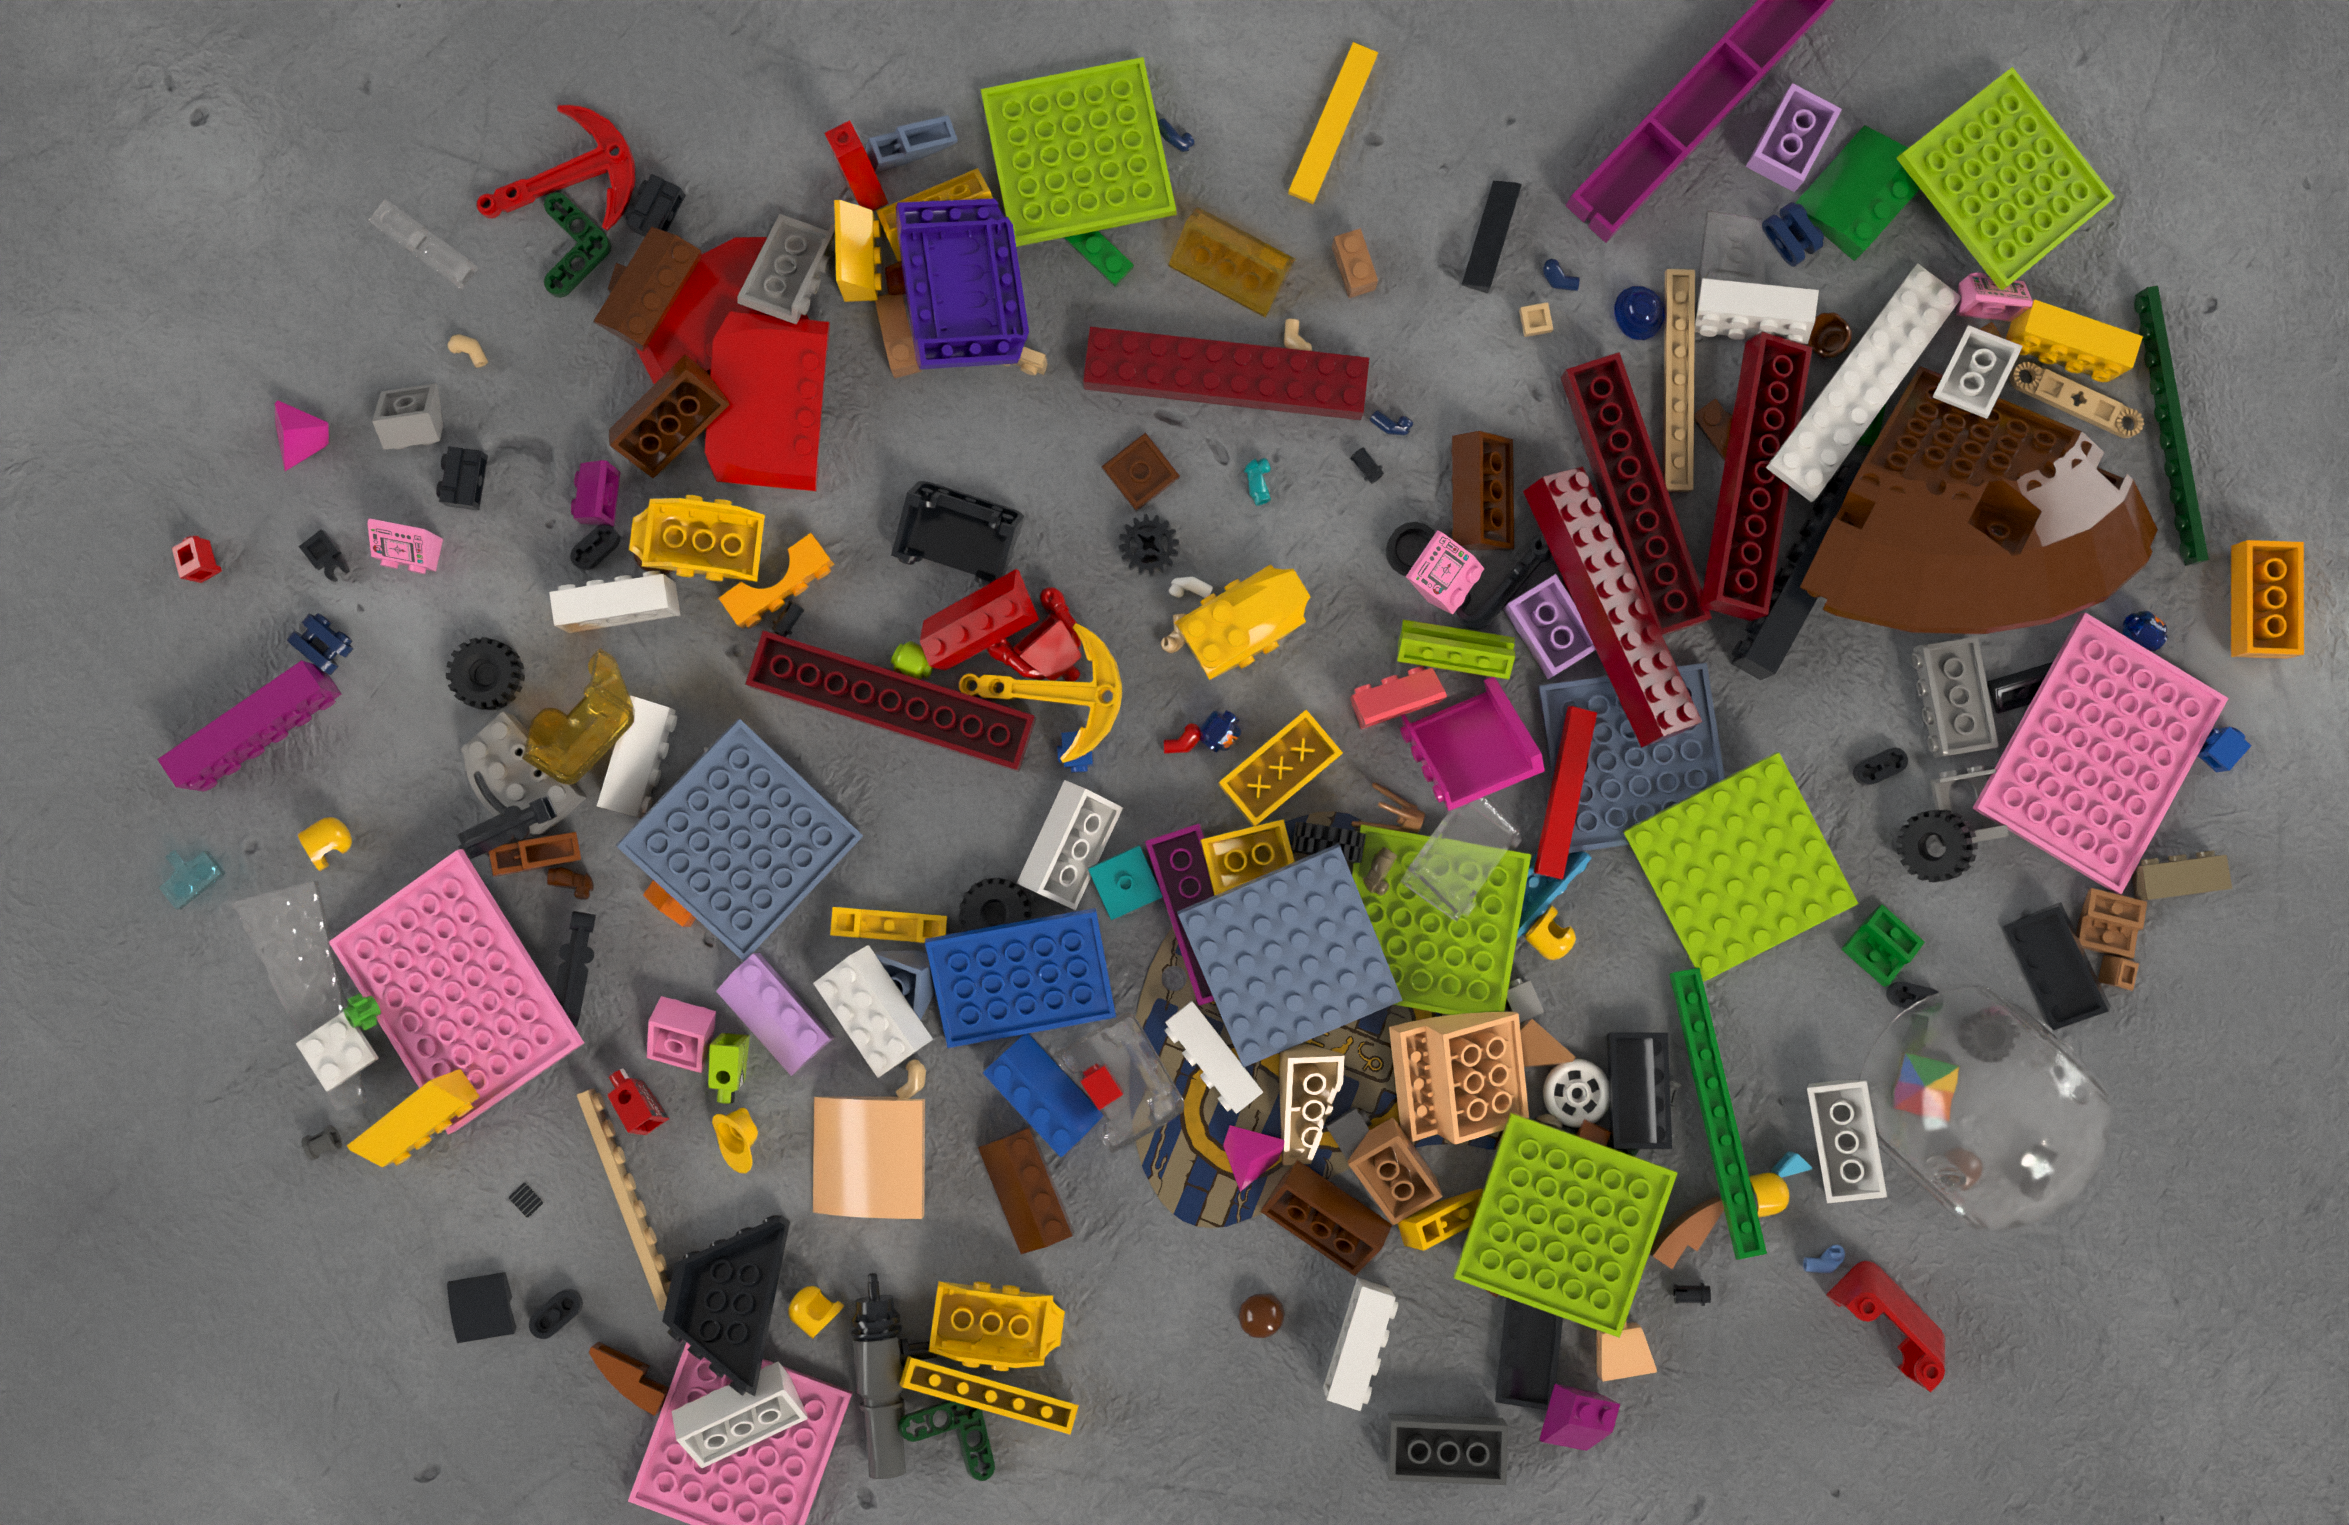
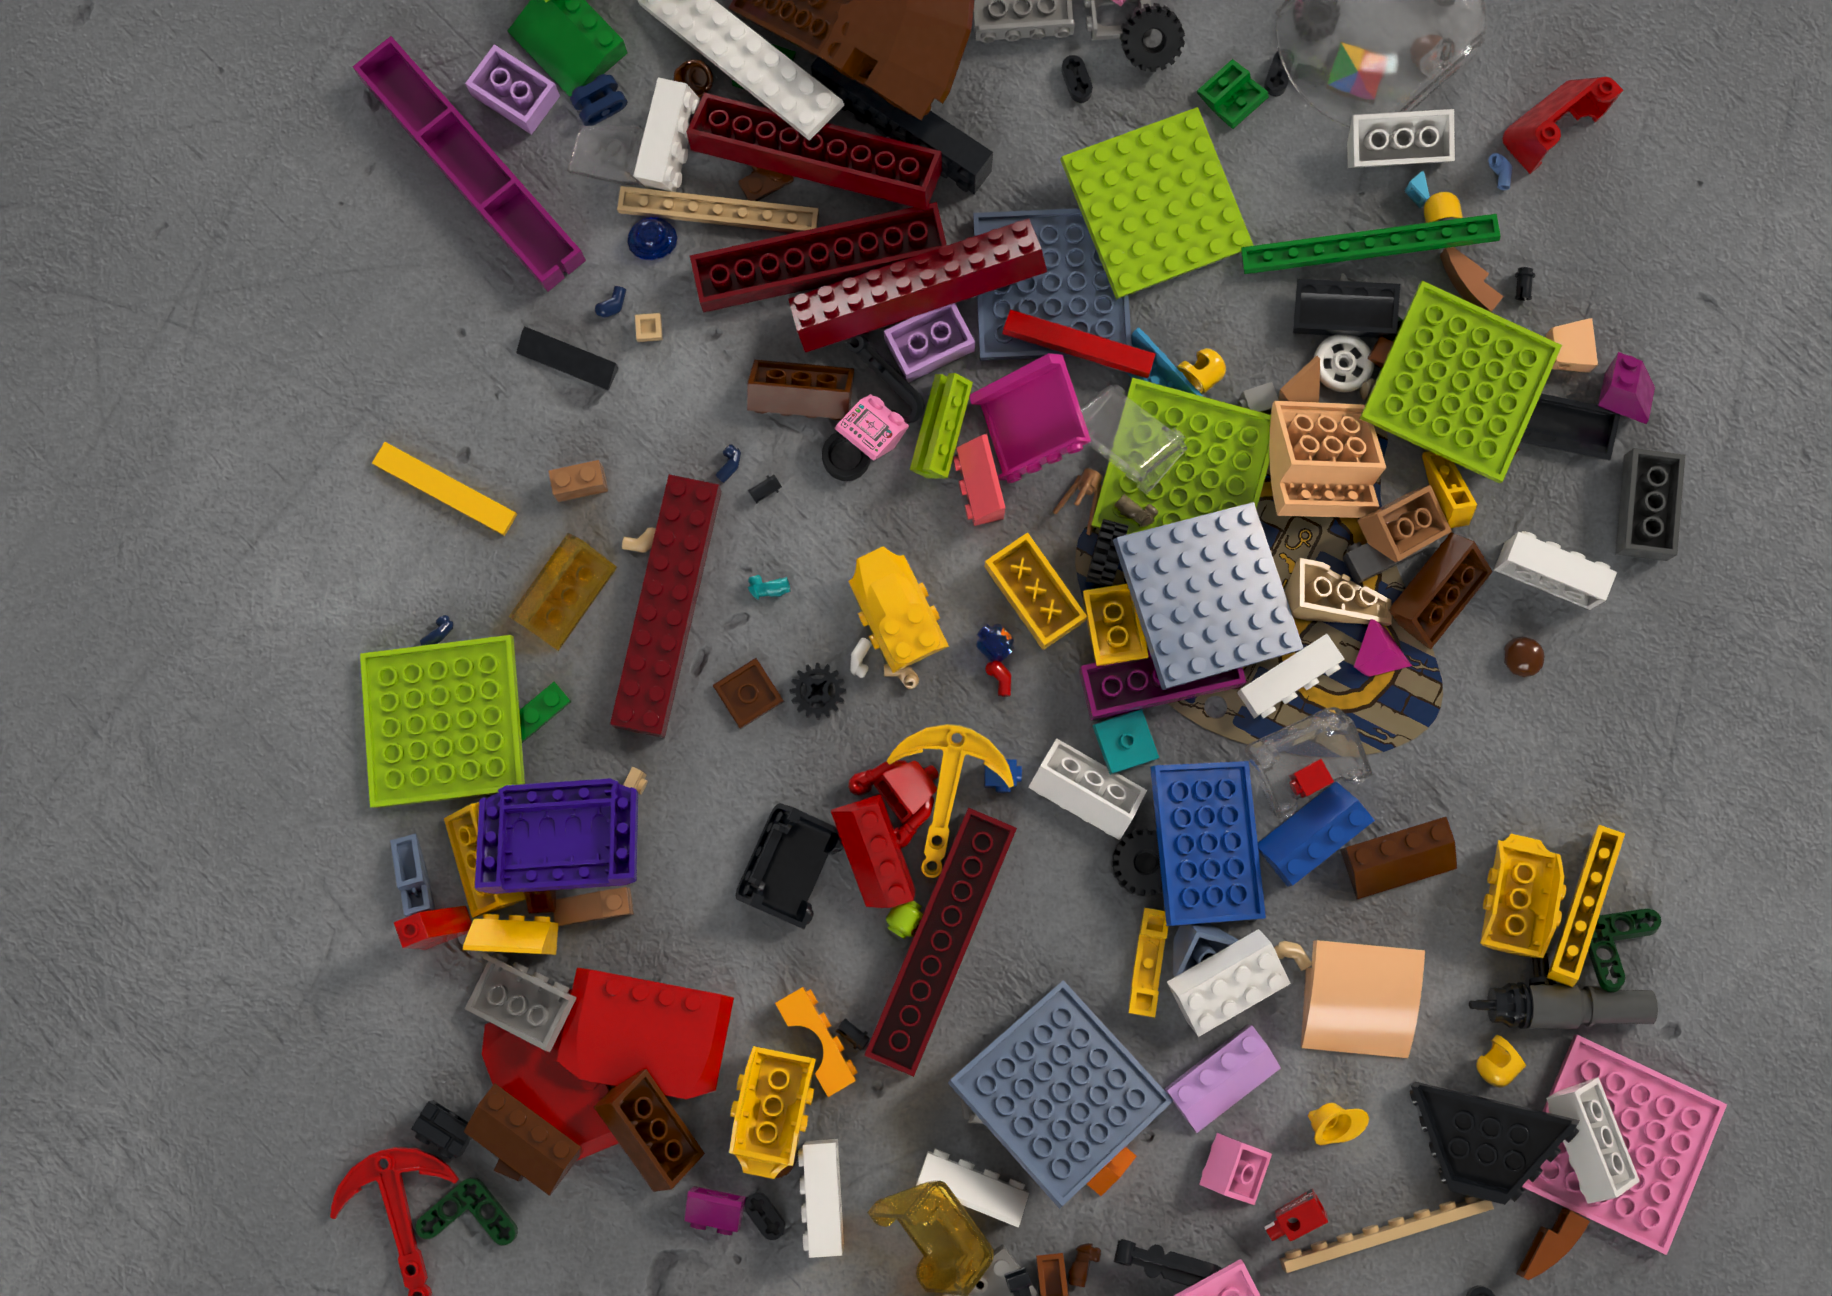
camera: 80 degrees left, 5 degrees down
(728, 1065) = (1268, 1125): lime torso -> none

